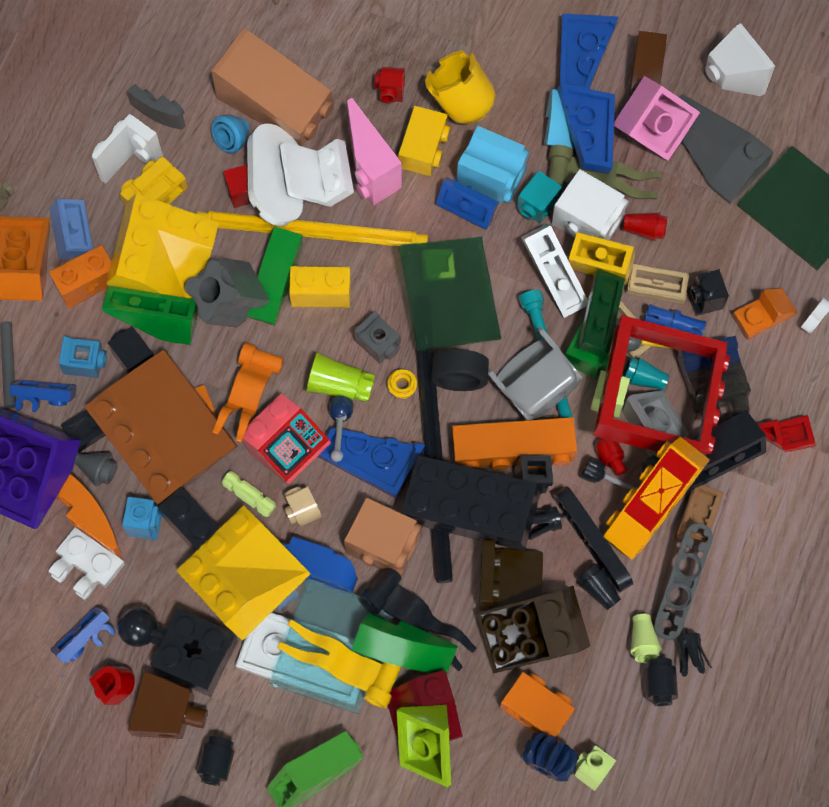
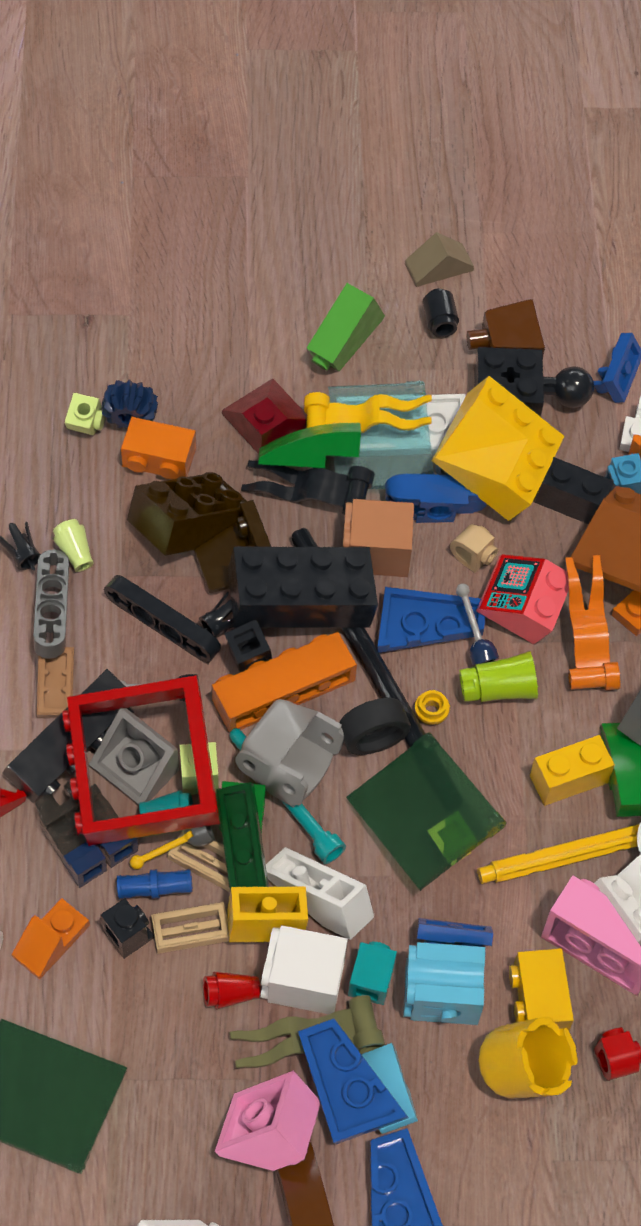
camera: 155 degrees right, 10 degrees down
(113, 684) = (565, 343): red plate -> none
(248, 494) = (534, 545): yellowish green axle -> none
(378, 349) = (484, 749): dark grey brick -> none
(425, 742) = (248, 379): lime slope -> none
(599, 586) = (143, 575): black cone -> none
(611, 455) = (174, 715): red cylinder -> none
(656, 496) = (107, 649): light orange brick -> none
(661, 681) = (43, 510): black brick -> none
(724, 152) = (170, 1126): dark grey wedge -> none

